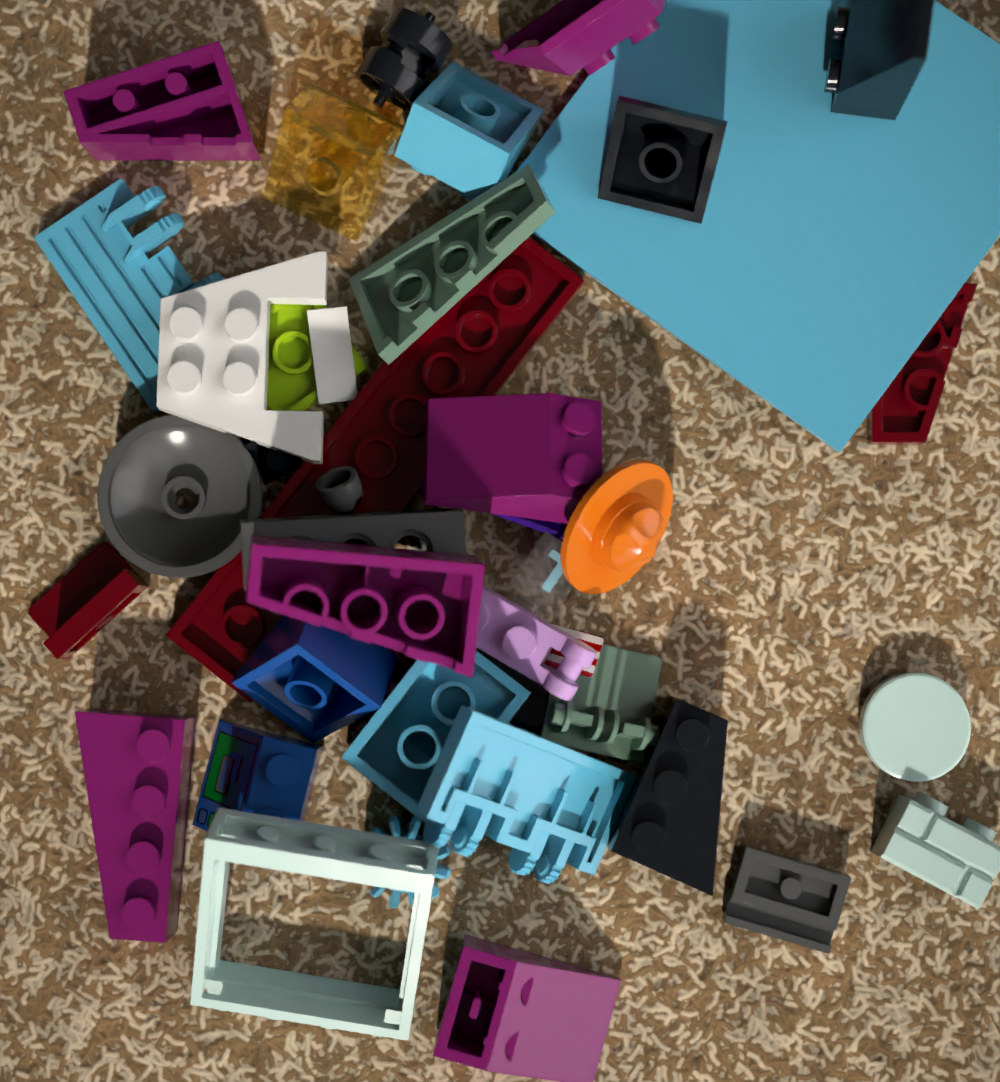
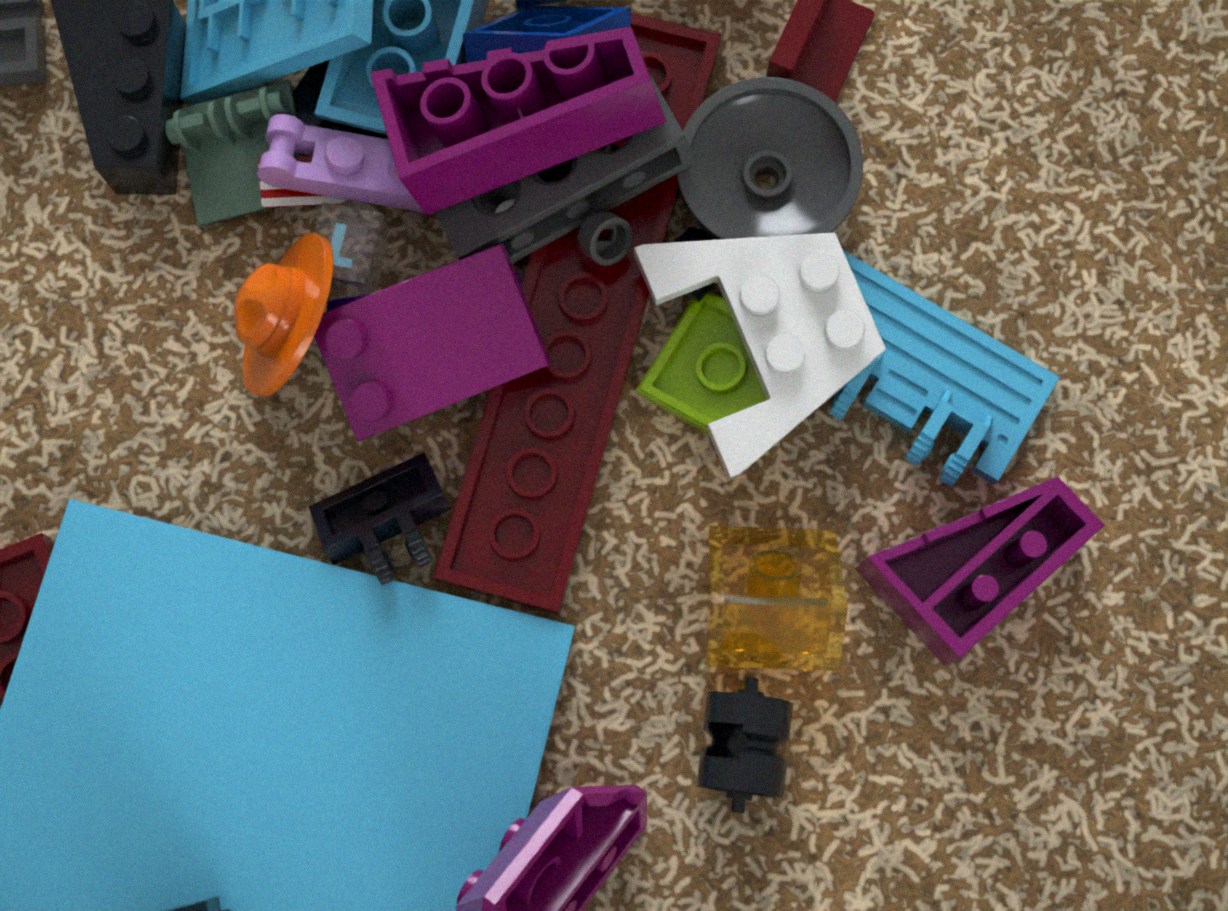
camera: 160 degrees right, 10 degrees down
(332, 354) = (678, 383): white sticker -> none
(439, 266) = (595, 524): sand green wing -> none
(466, 131) = (634, 695): medium azure slope -> none
(605, 351) = (379, 510): none -> black hinge
(661, 159) = (391, 739): black slope -> none

